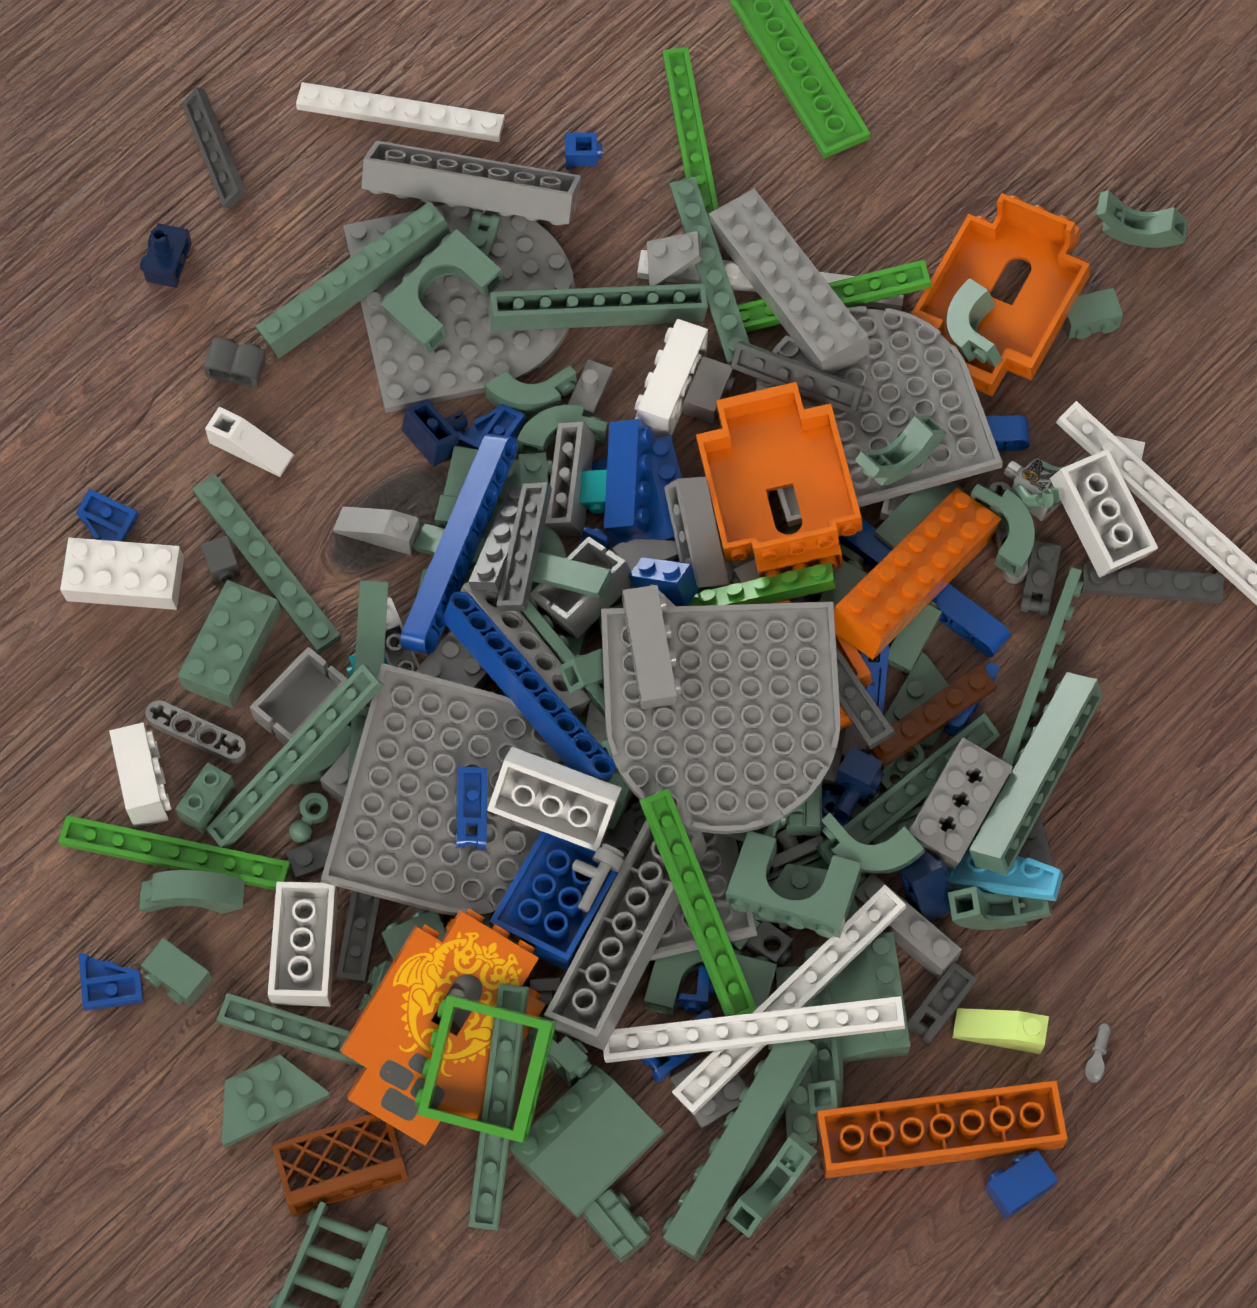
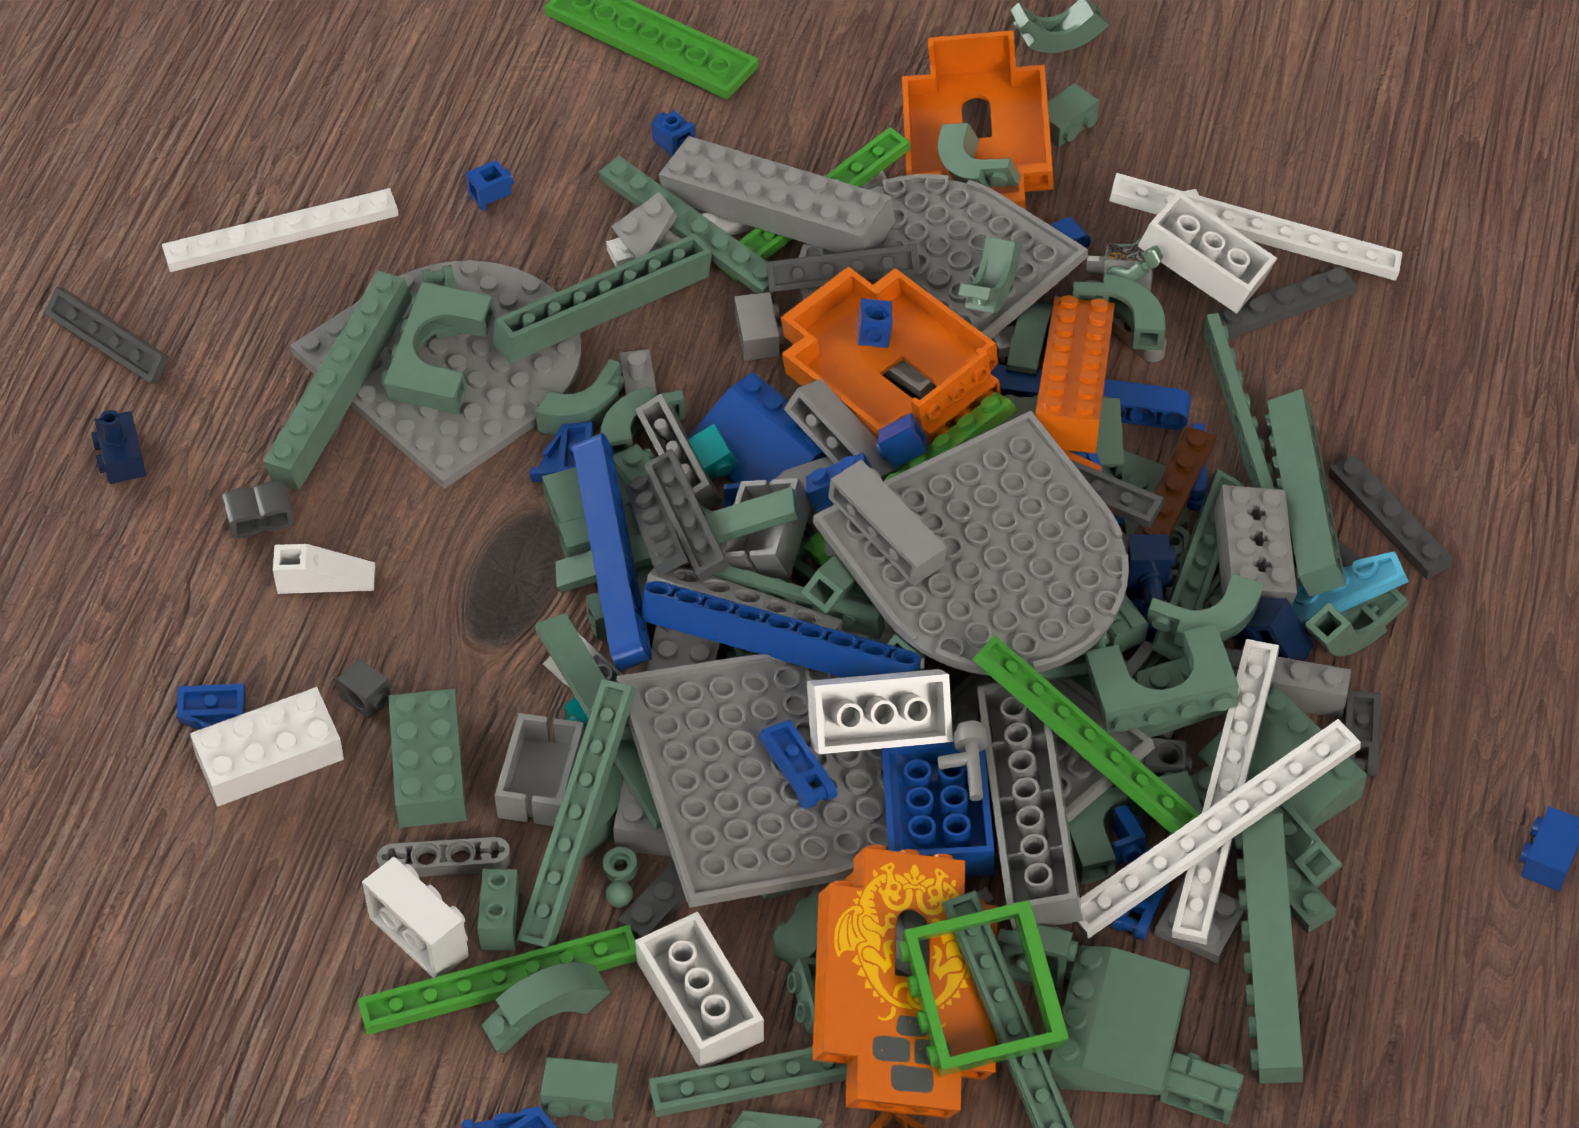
camera: 30 degrees left, 15 degrees down
(266, 564) = (411, 671): sand green plate -> none
(358, 938) = (746, 953): dark grey plate -> none
(379, 527) = (513, 584): light grey slope -> none
(432, 432) = (508, 477): dark blue brick -> none
(471, 182) = (401, 250): light grey brick -> none
(628, 477) = (738, 423): blue brick -> none
(672, 377) = (718, 327): white brick -> none
(689, 123) = (575, 118): bright green plate -> none
(732, 566) = (902, 440): none -> blue brick
(757, 171) = (670, 127): none -> blue brick
(773, 1186) = (1328, 964): sand green arch -> none
(786, 437) = (874, 323): none -> blue brick
(940, 1129) = (1445, 837): orange brick -> none
(1002, 1028) = (1436, 724): yellowish green slope -> none
(1040, 577) = (1183, 346): dark grey plate -> none
(1095, 1066) = (1540, 717): light grey piece -> none
(1102, 826) = (1391, 517): none -> dark grey plate

